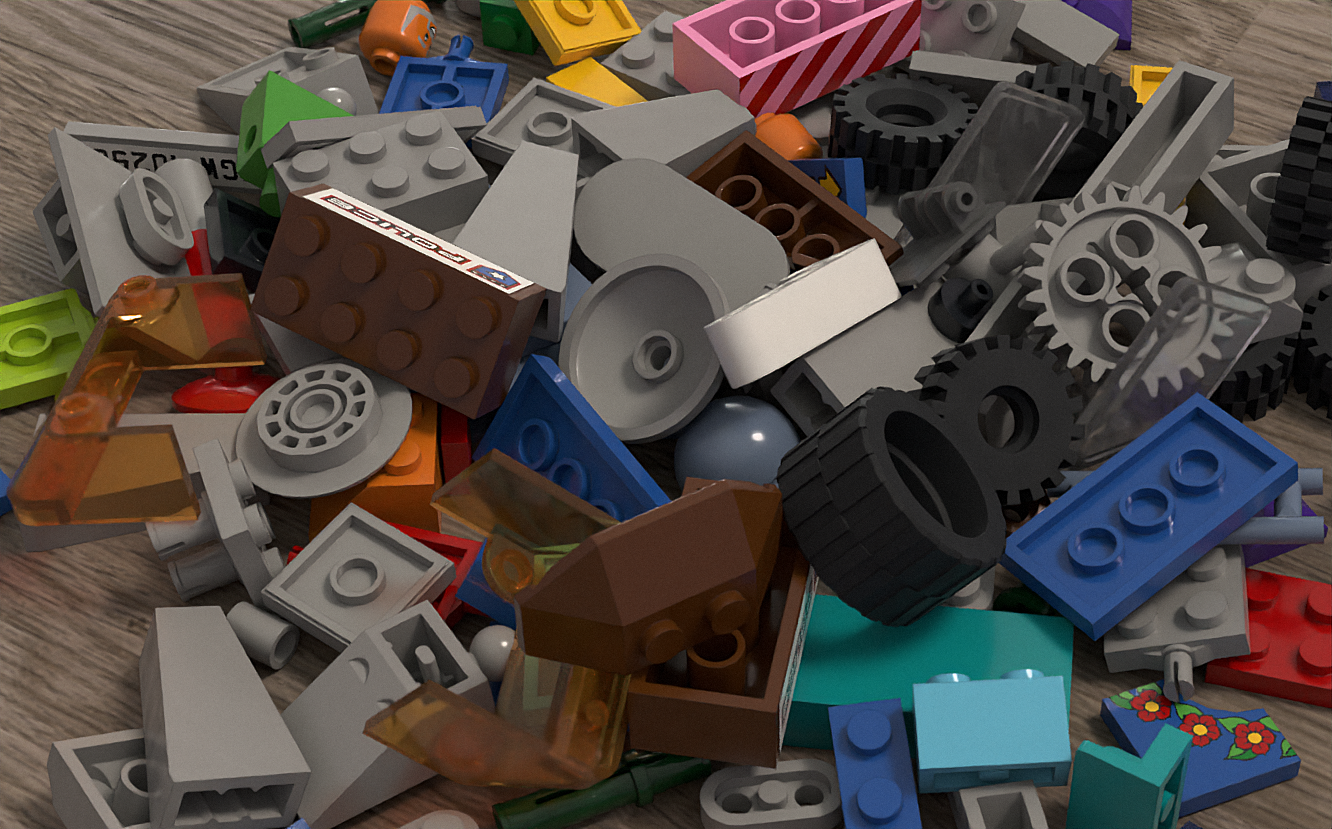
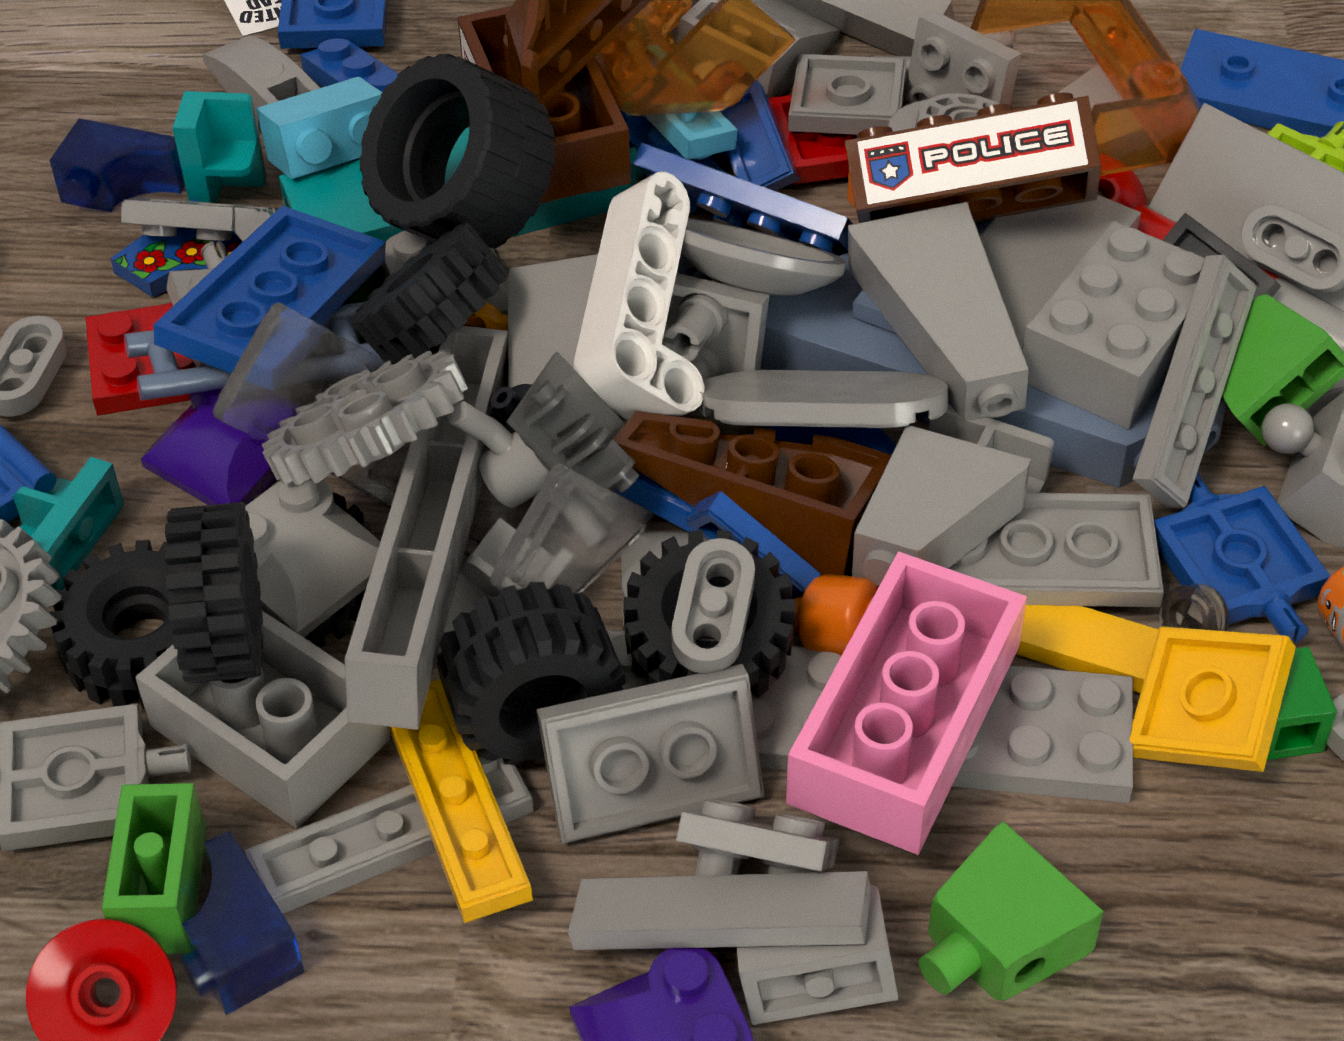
camera: 150 degrees right, 5 degrees up
(519, 66) = (1194, 608): none -> clear smoke tile
(911, 81) = (711, 609): none -> light grey plate
(1226, 739) = (211, 220): none -> light grey hinge

